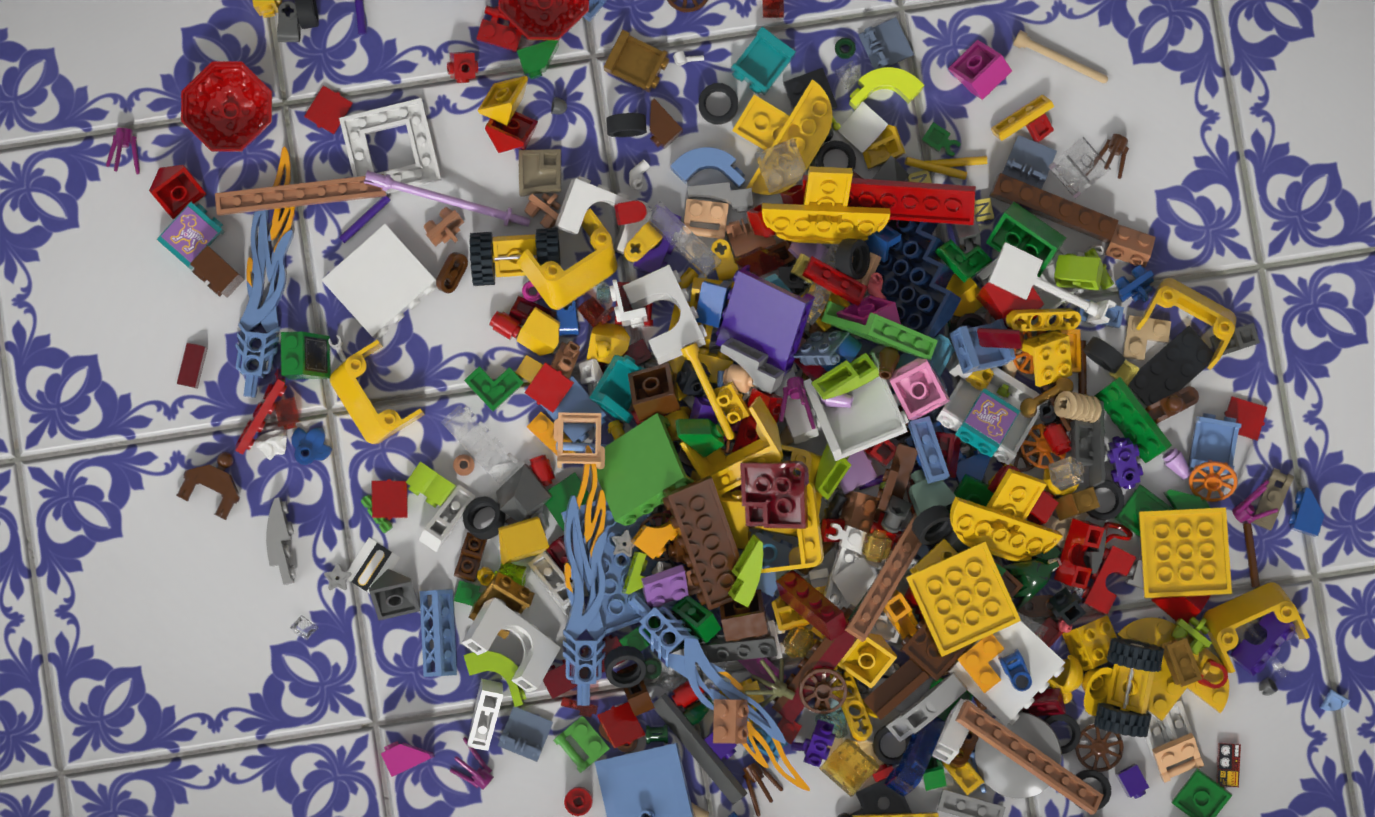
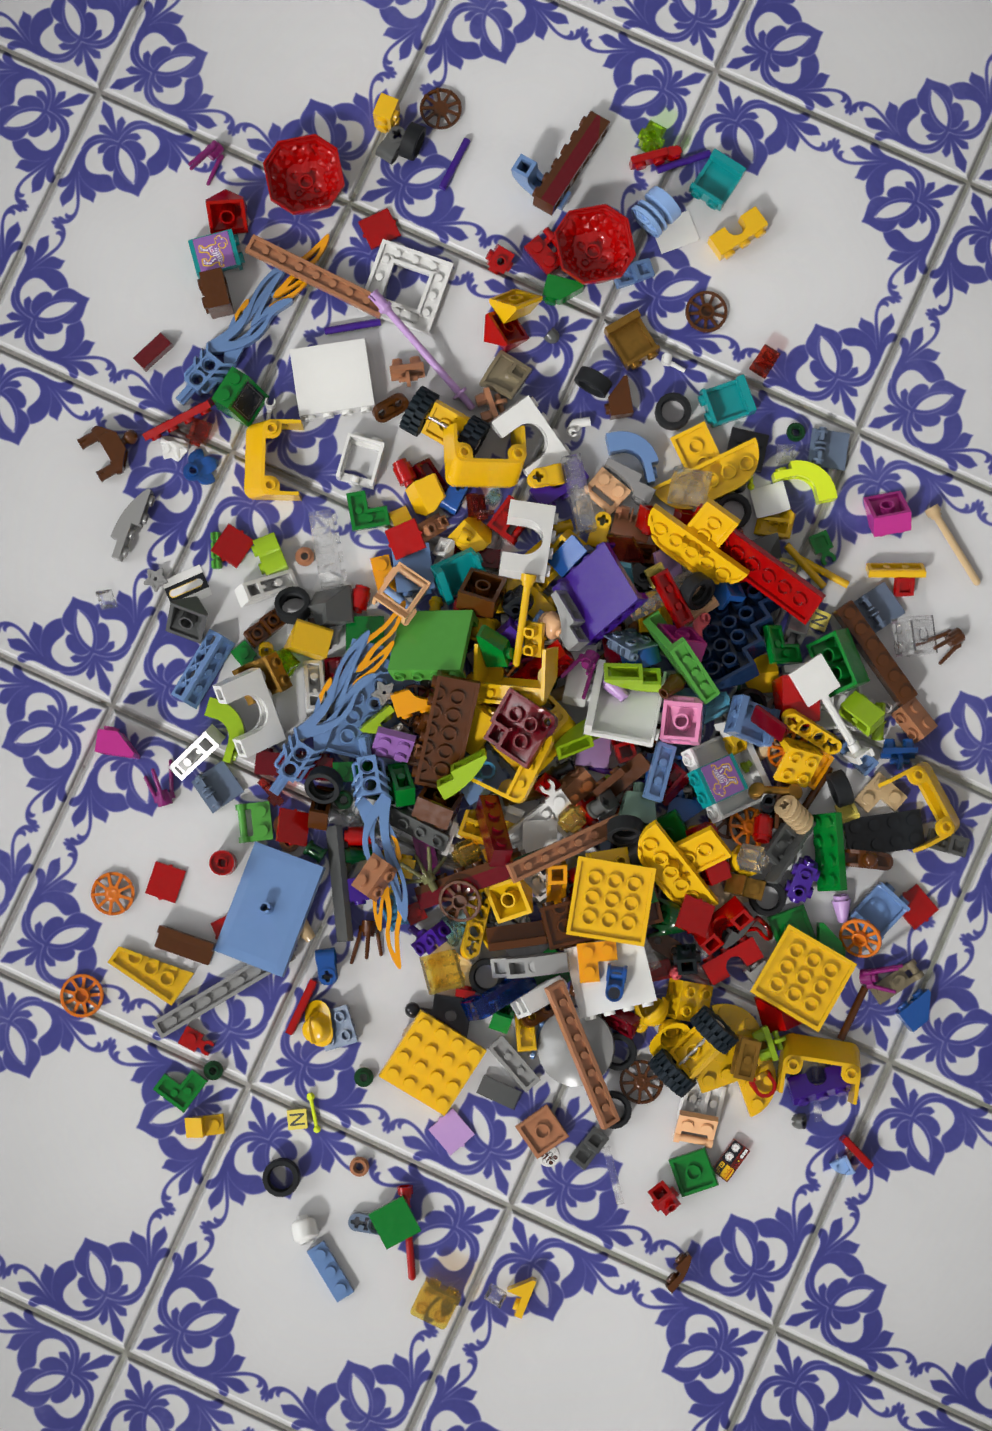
camera: 30 degrees right, 0 degrees up
(459, 316) = (359, 440): none -> white window
(525, 291) = (436, 457): dark pink plate -> none
(630, 212) = (552, 447): red piece -> none
(634, 317) = (503, 528): white bracket -> none
(1048, 561) = (694, 916): none -> red piece
(1132, 781) = (649, 1124): dark purple brick -> none
(1338, 680) = (856, 1151): none -> red tile

